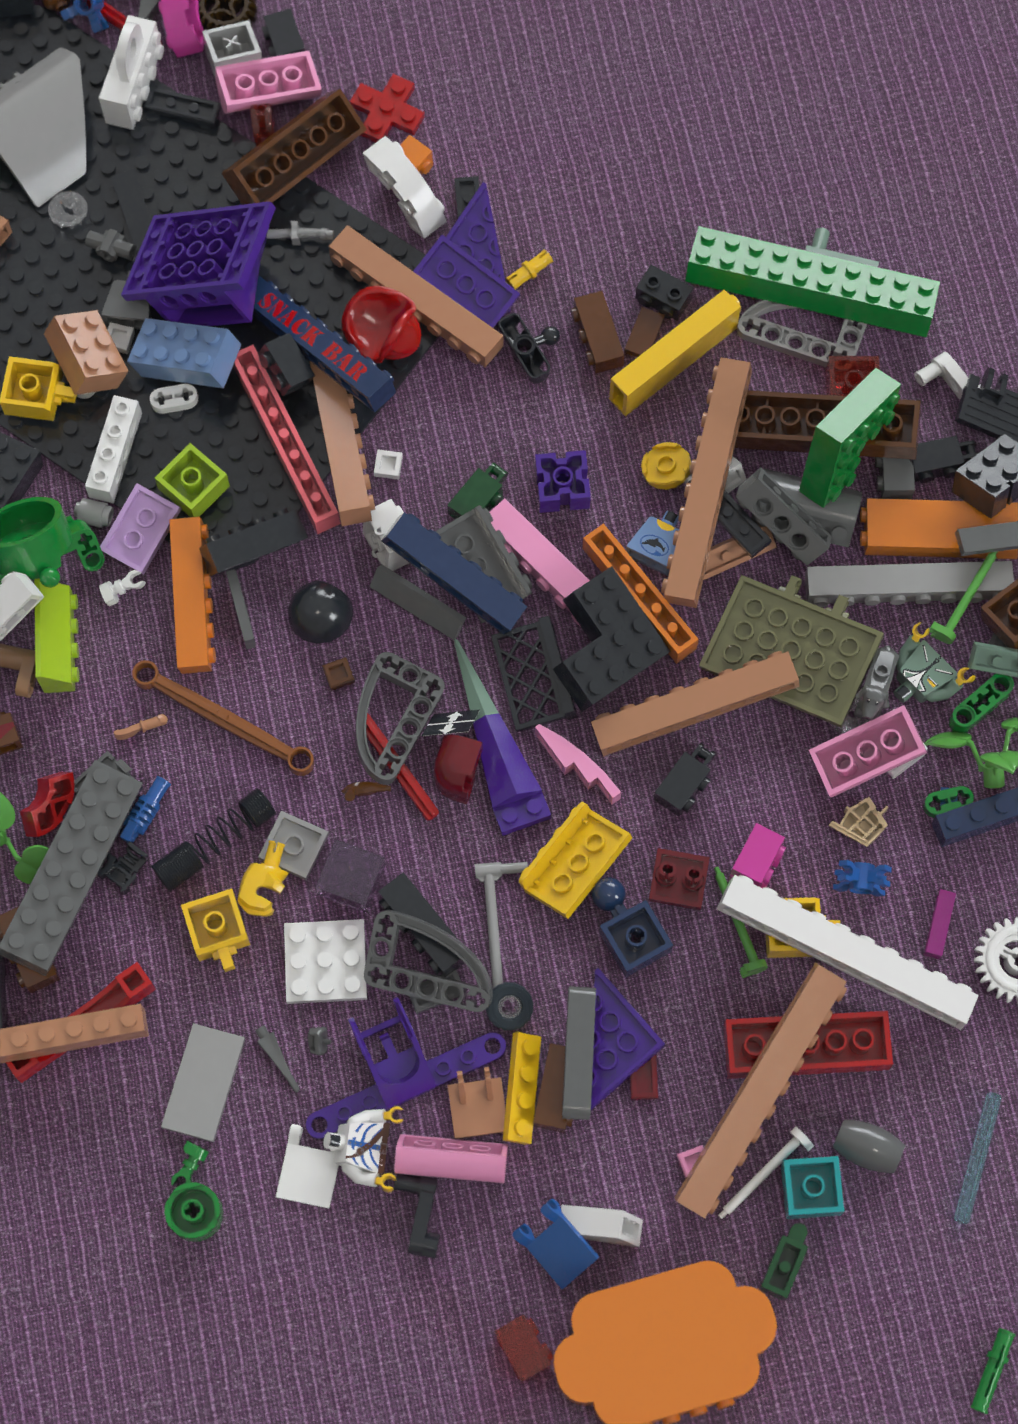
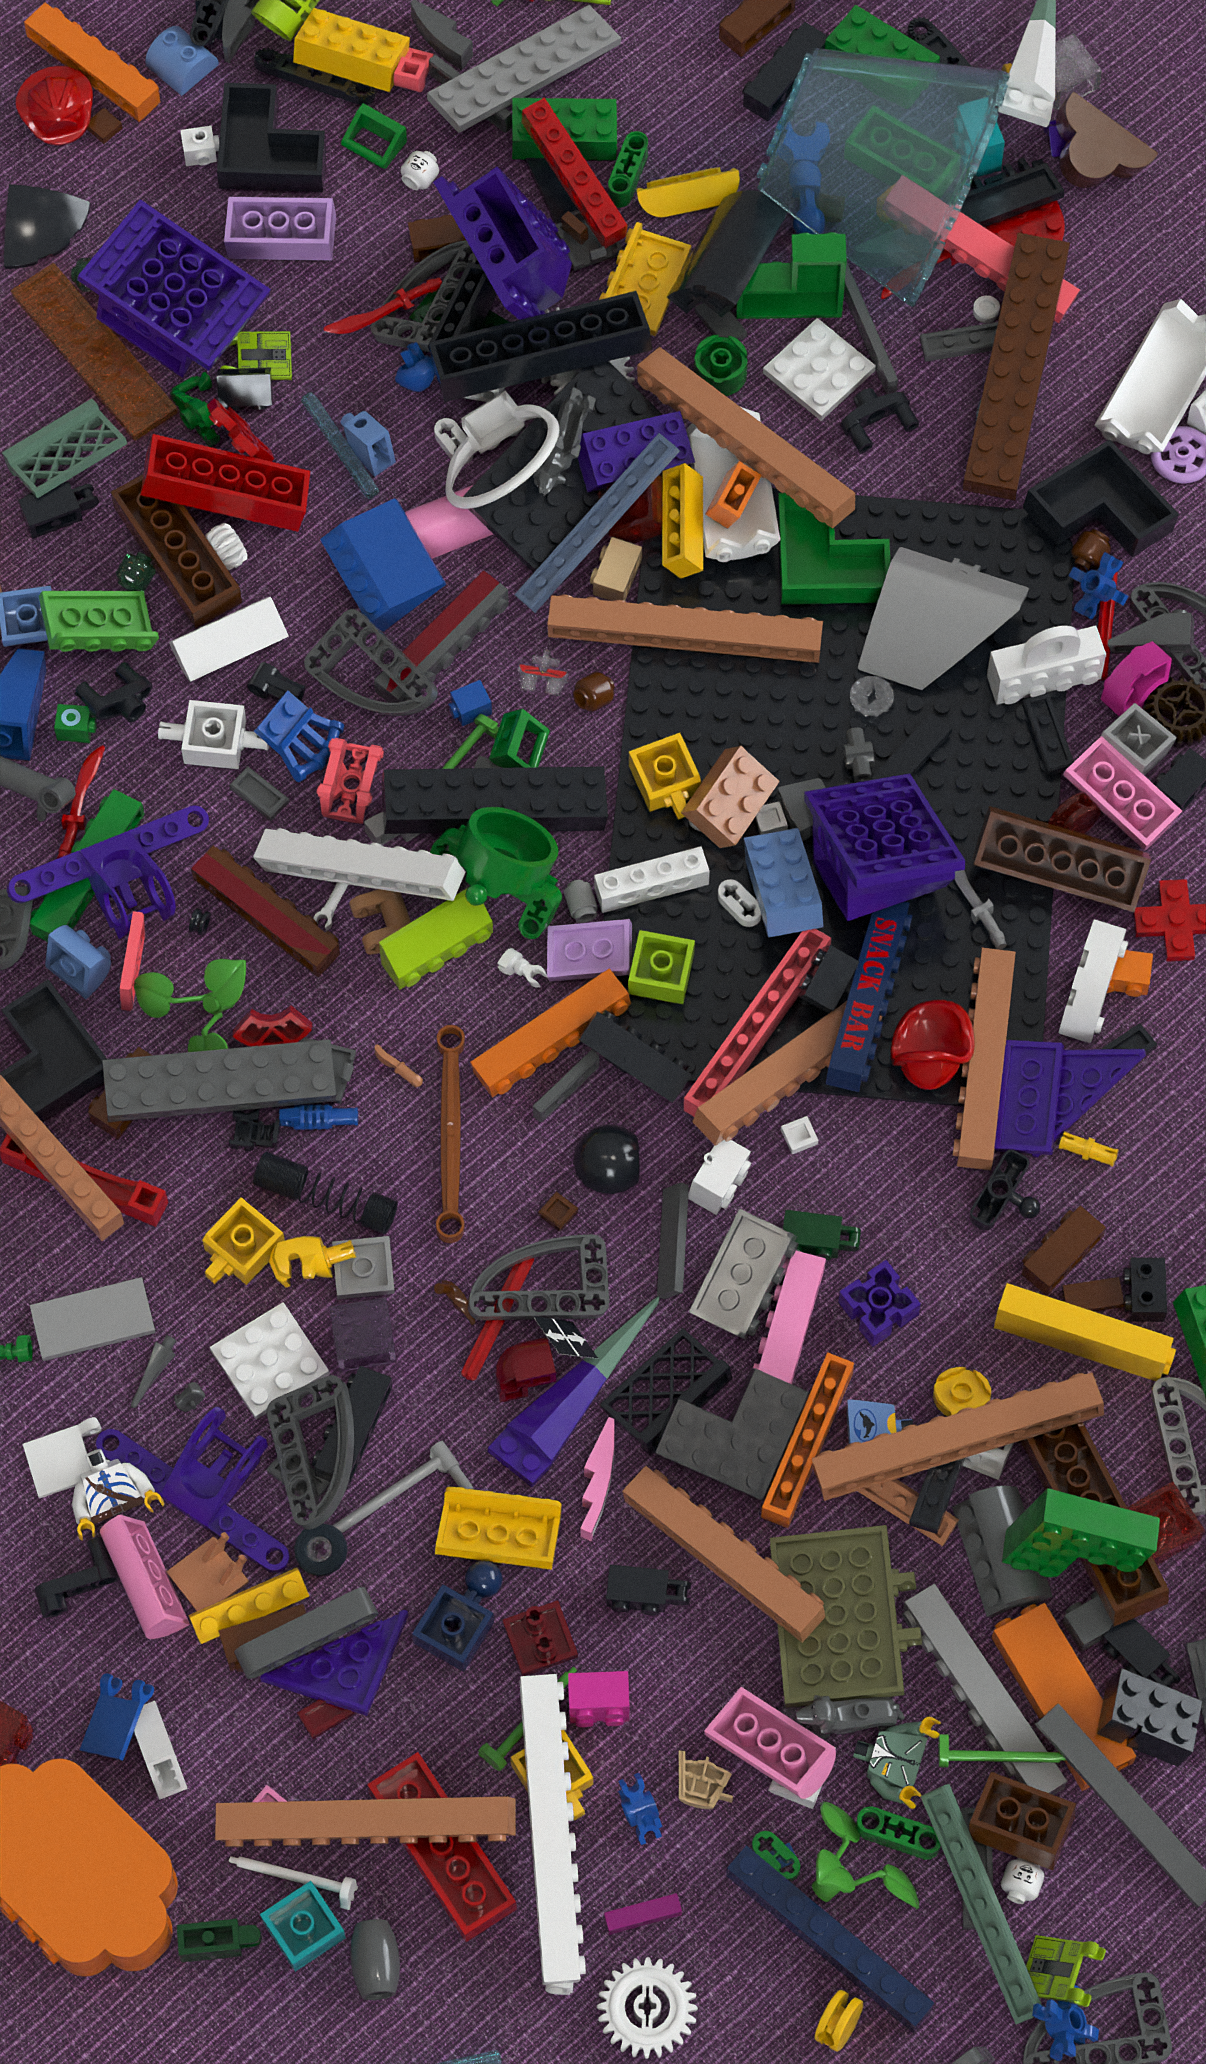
camera: 60 degrees right, 5 degrees down
(454, 573) = (711, 1252): dark blue brick -> none
(763, 486) = (968, 1529): dark grey brick -> none

